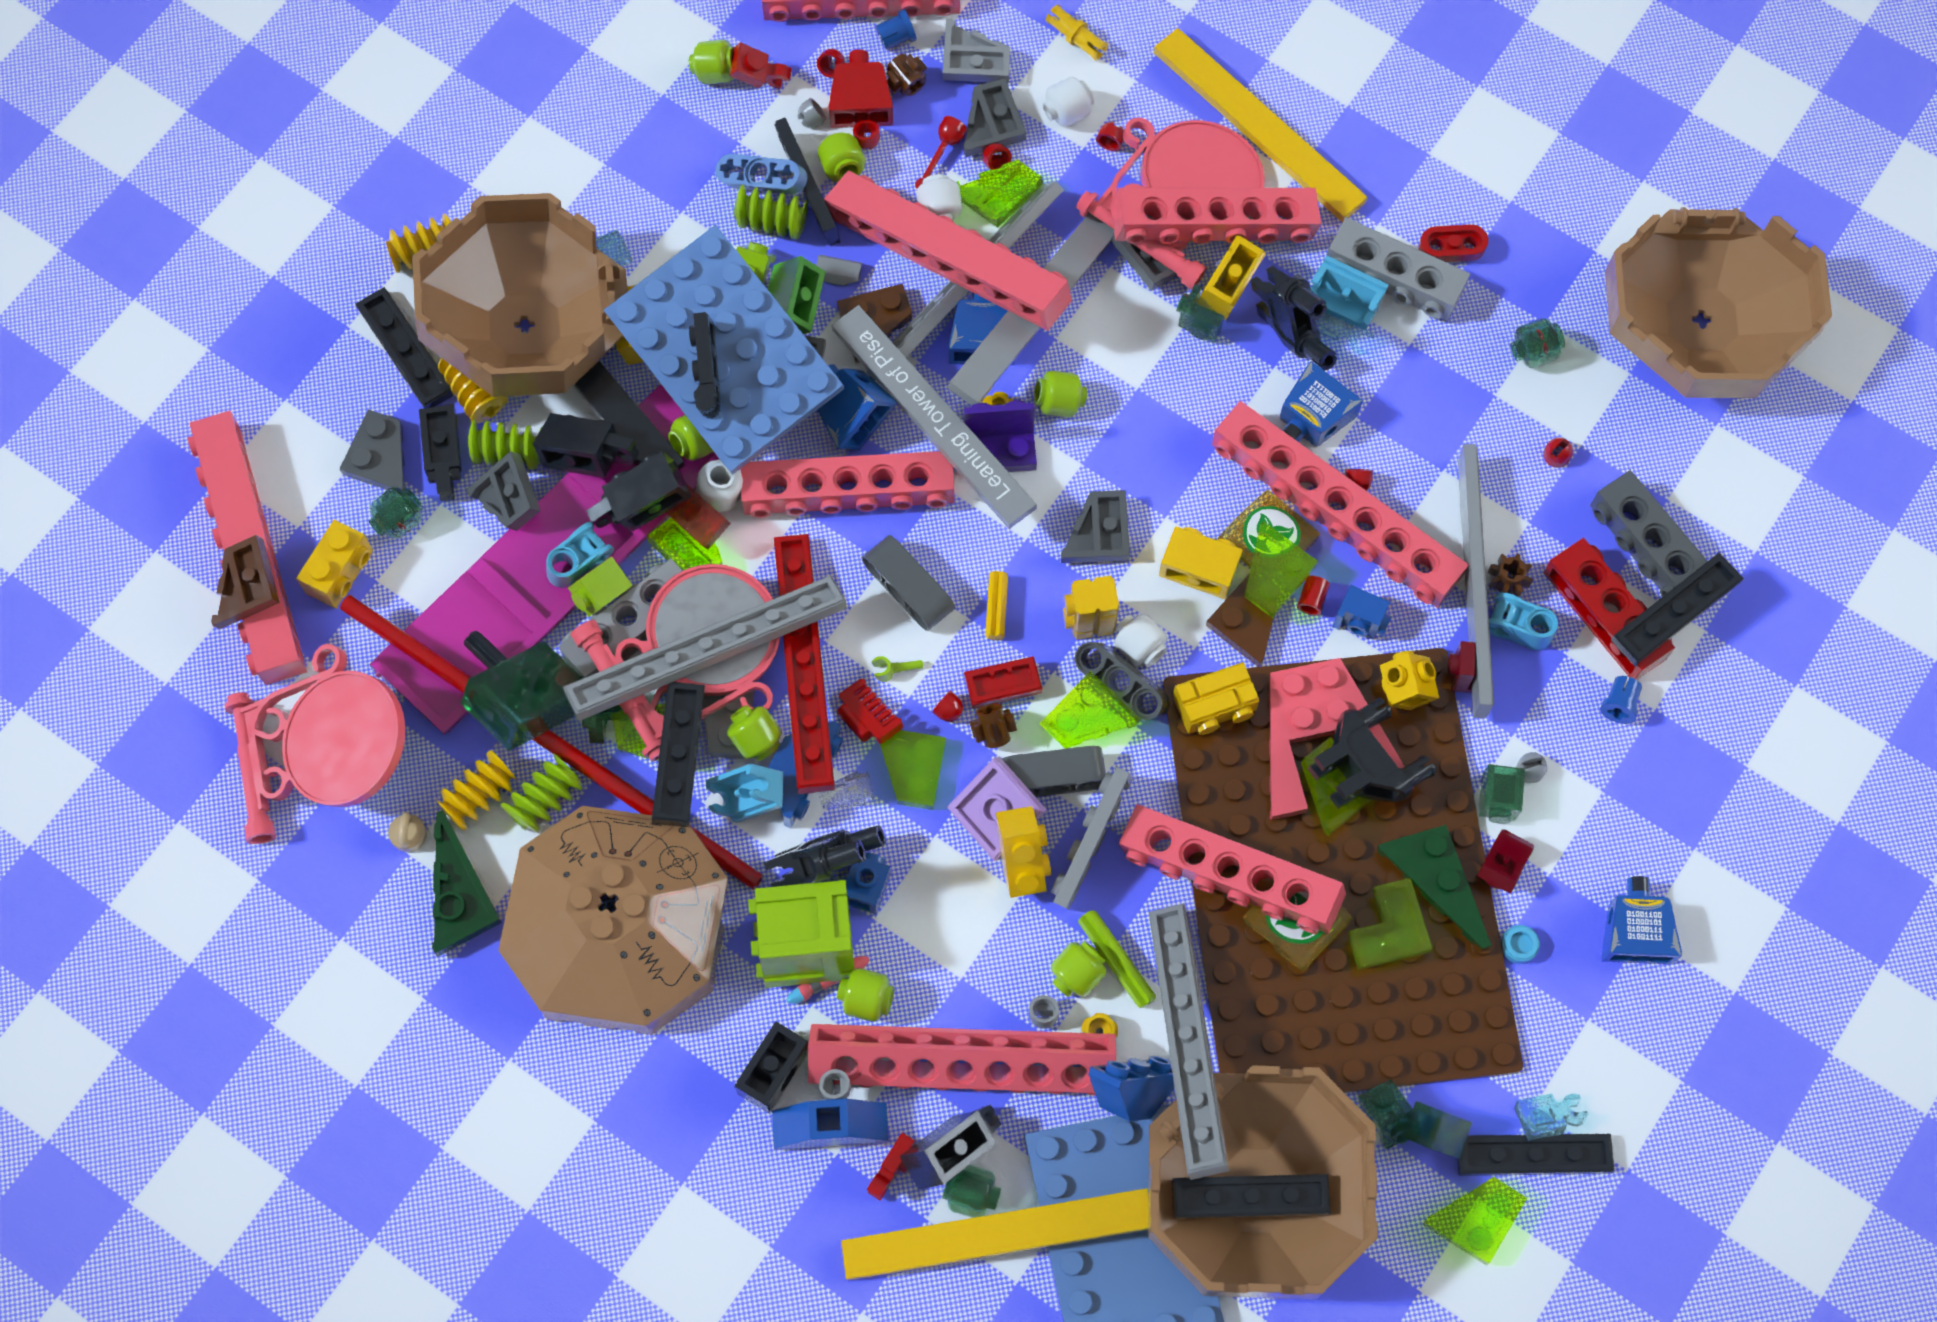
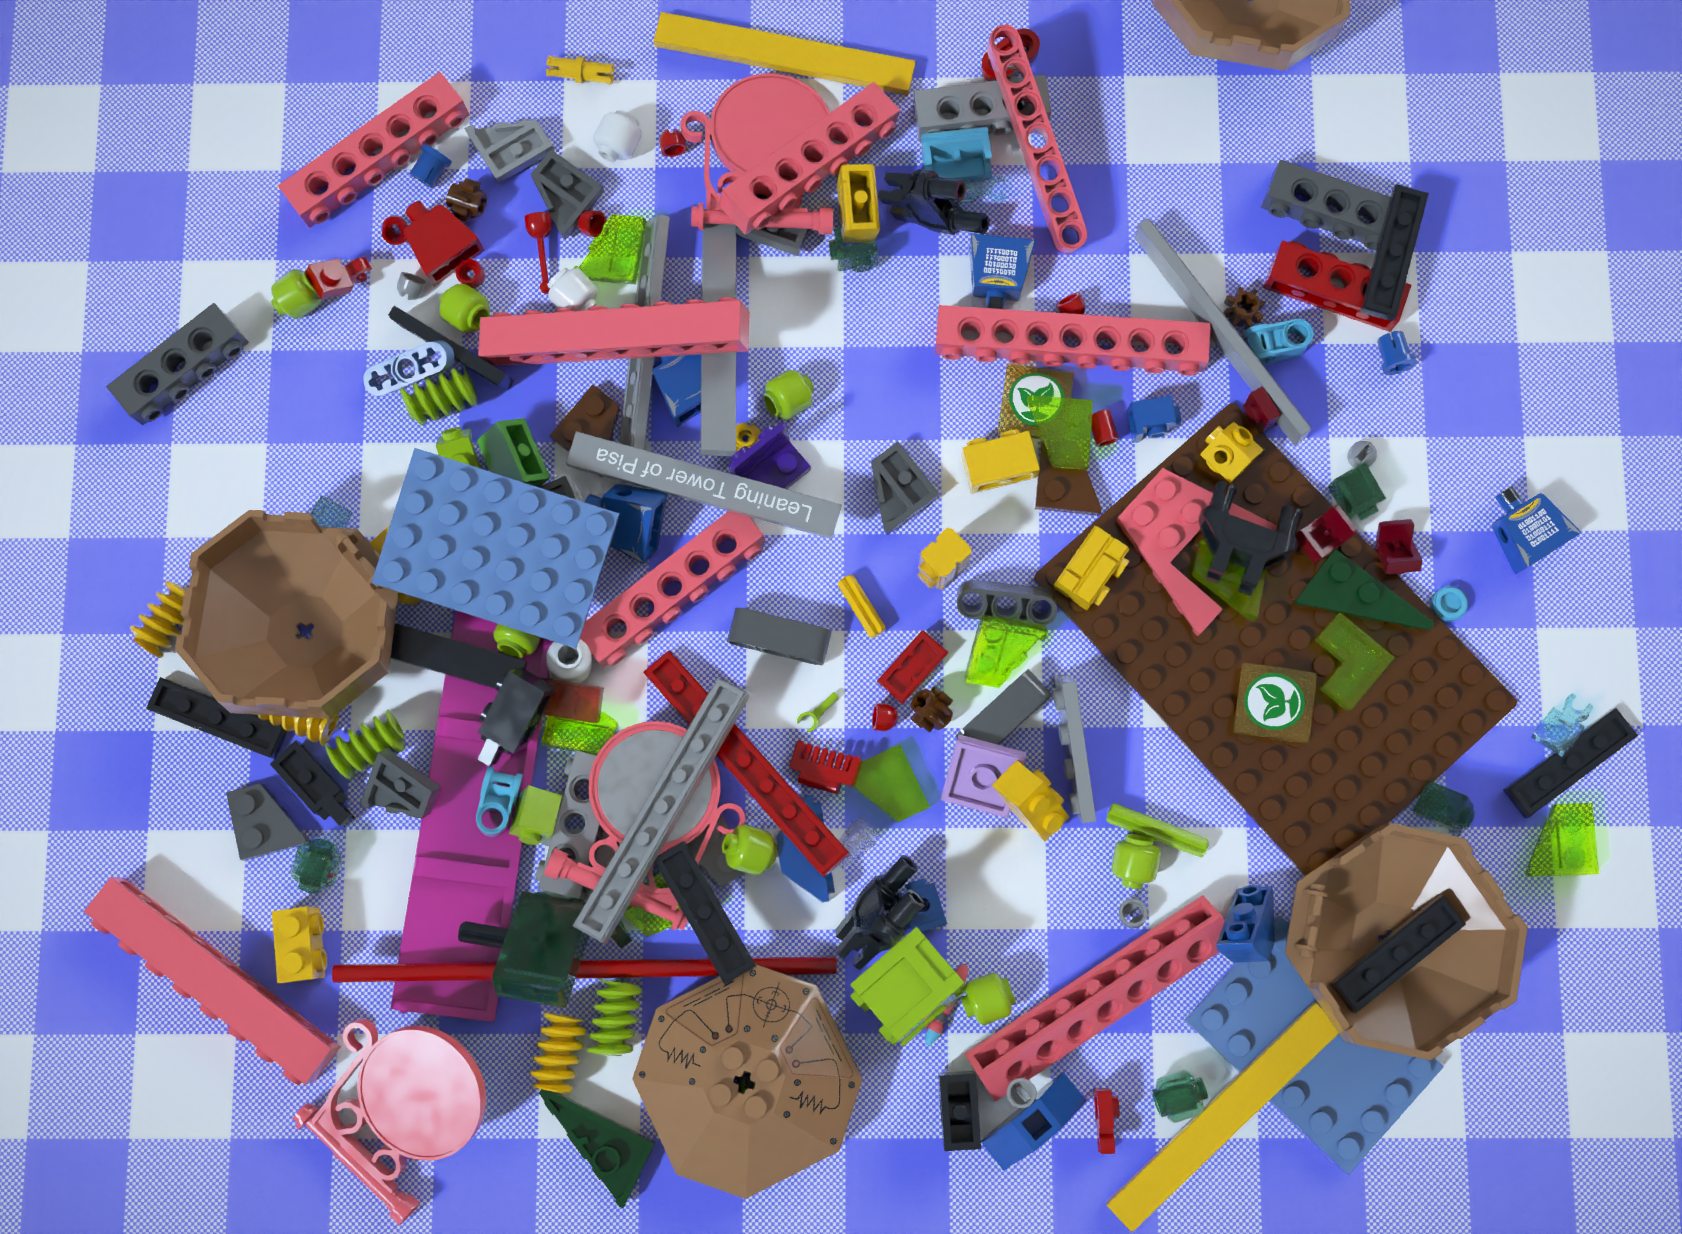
camera: 30 degrees left, 10 degrees up
(245, 583) = (237, 1017): reddish brown wing -> none
(407, 832) = (525, 1123): tan tile -> none
(567, 47) = (159, 365): none -> dark grey brick
(582, 445) = (433, 705): black hinge -> none
(706, 366) = (496, 577): black hinge -> none
(747, 792) = (781, 903): medium azure hinge -> none
(839, 270) = (531, 406): light grey piece -> none
(951, 1147) = (1143, 1075): hinge -> none
(1101, 1021) = (1177, 890): yellow plate -> none
(1141, 640) = (996, 558): white head -> none
(1149, 827) = (1291, 675): coral brick -> none
(1188, 1043) = (1271, 868): light grey tile -> none
(1426, 303) = (1036, 123): none -> coral beam
(1437, 1130) = (1494, 798): brick -> none
(1444, 805) = (1326, 533): none -> dark red bracket
(1537, 343) = (1134, 98): head -> none
(1564, 456) = (1201, 179): hinge -> none

